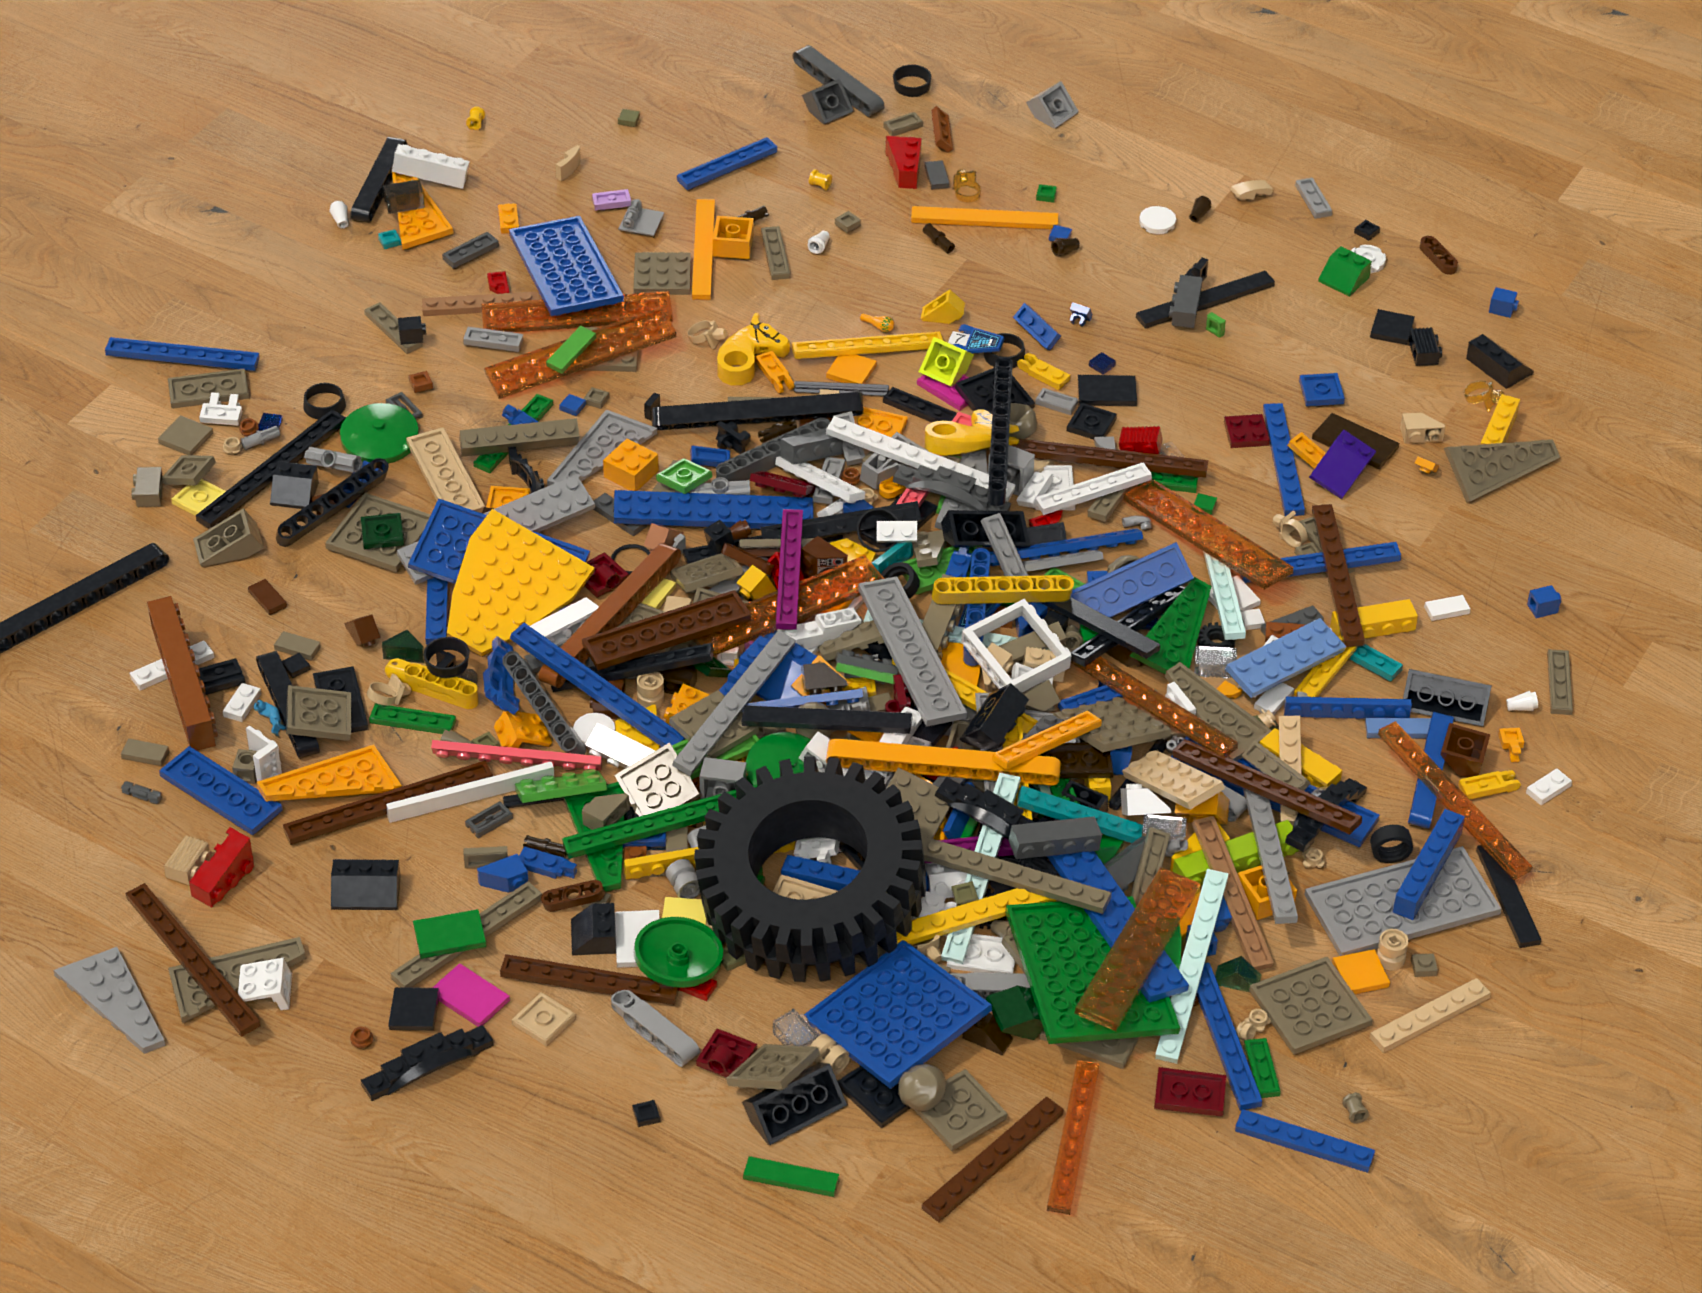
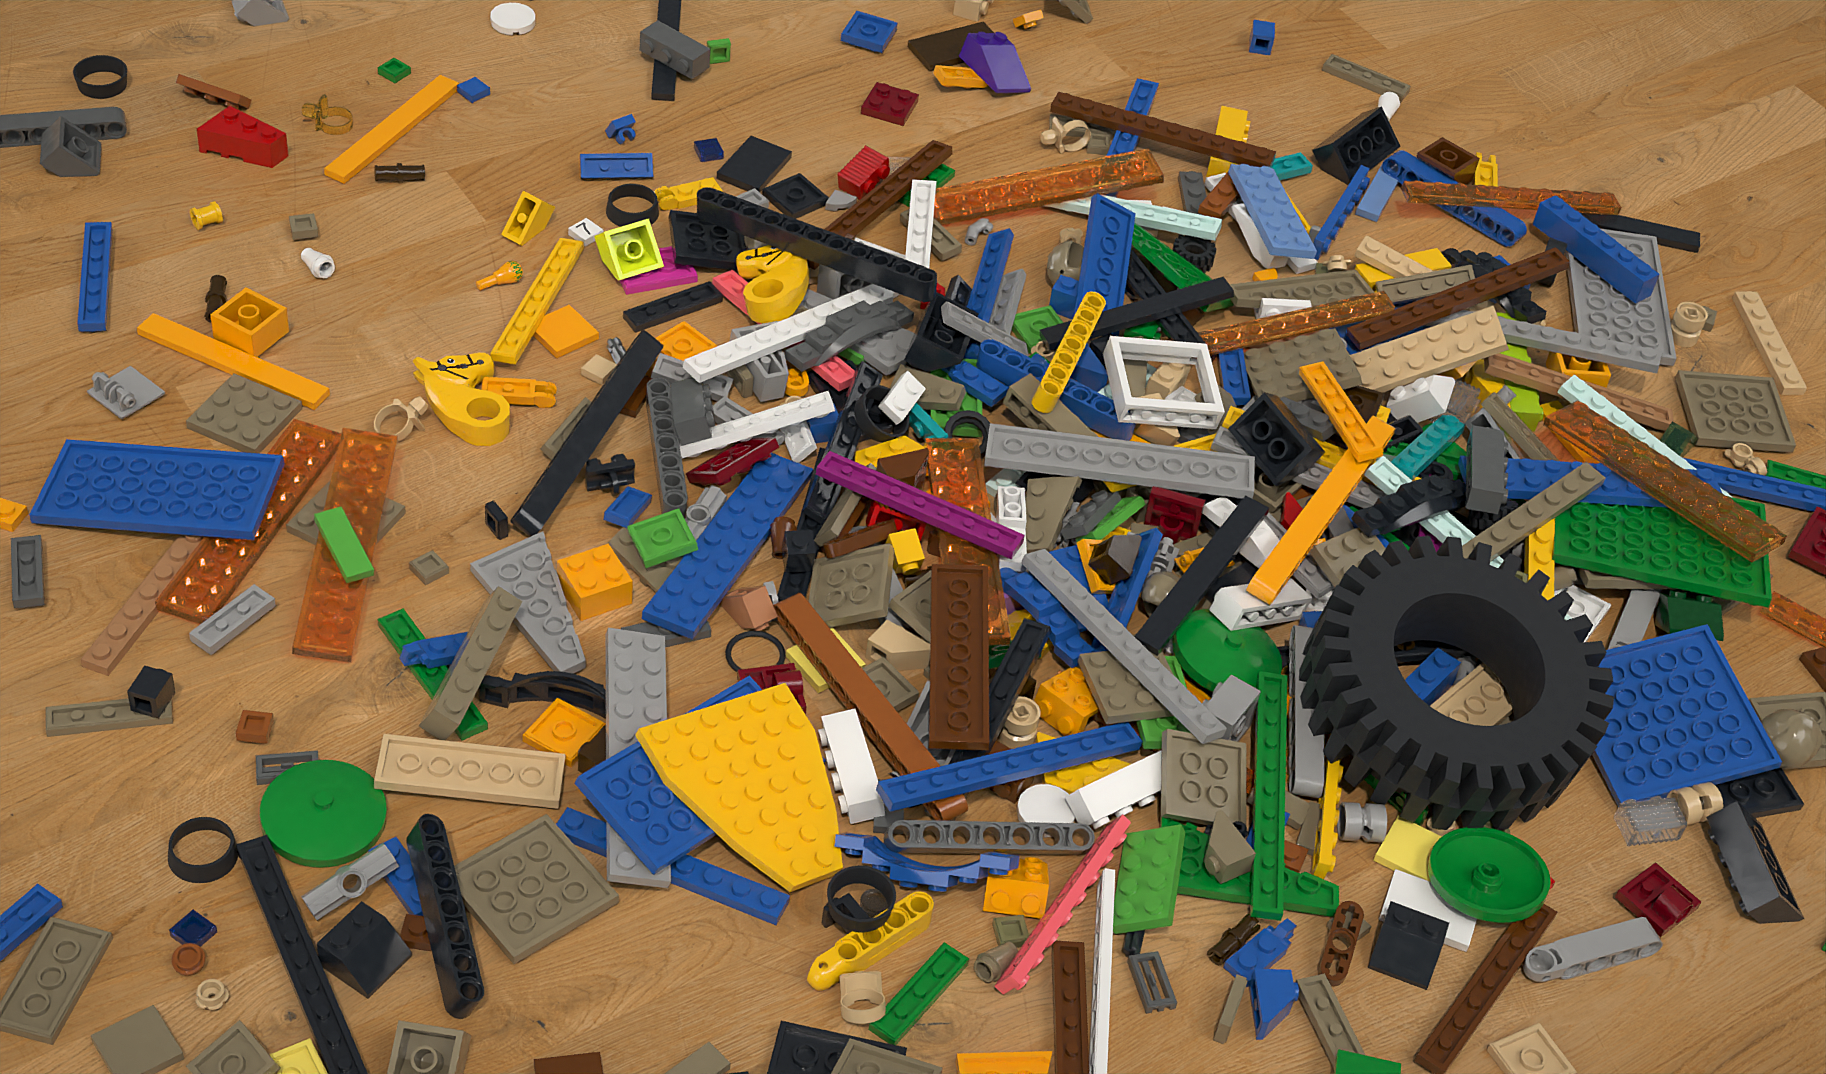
camera: 70 degrees left, 0 degrees up
(221, 414) = (132, 981): white plate -> none
(260, 437) = (222, 952): light grey axle -> none
(363, 630) = (717, 980): reddish brown slope -> none
(382, 531) = (541, 881): dark green tile -> none
(404, 647) = (784, 946): clear green slope -> none
(498, 282) = (118, 572): red tile -> none
(572, 404) = (425, 594): blue tile -> none
(611, 199) = (60, 400): lavender plate -> none
(646, 1113) = (1723, 1017): black tile -> none
(773, 1066) = (1716, 856): dark tan plate -> none
(775, 253) = (307, 308): dark tan tile -> none
(776, 430) = (626, 432): dark brown pin -> none
(851, 476) = (752, 403): dark orange plate -> none
(866, 389) = (595, 347): axle -> none
(903, 124) = (167, 117): dark tan tile -> none
(937, 175) = (296, 132): dark grey tile -> none
(980, 340) = (612, 211): flag -> none
(1064, 245) = (499, 93): dark brown cone -> none
(1199, 269) = (633, 24): black bracket -> none
(1206, 502) = (978, 172): green tile -> none
(1213, 661) = (1228, 262): clear brick -> none
(1283, 459) = (953, 100): blue plate -> none
(1362, 971) = (1697, 357): light orange tile -> none
(1447, 607) = (1229, 94): white tile -> none
(1513, 740) = (1432, 133): light orange plate -> none
(1549, 786) = (1500, 144): white plate -> none

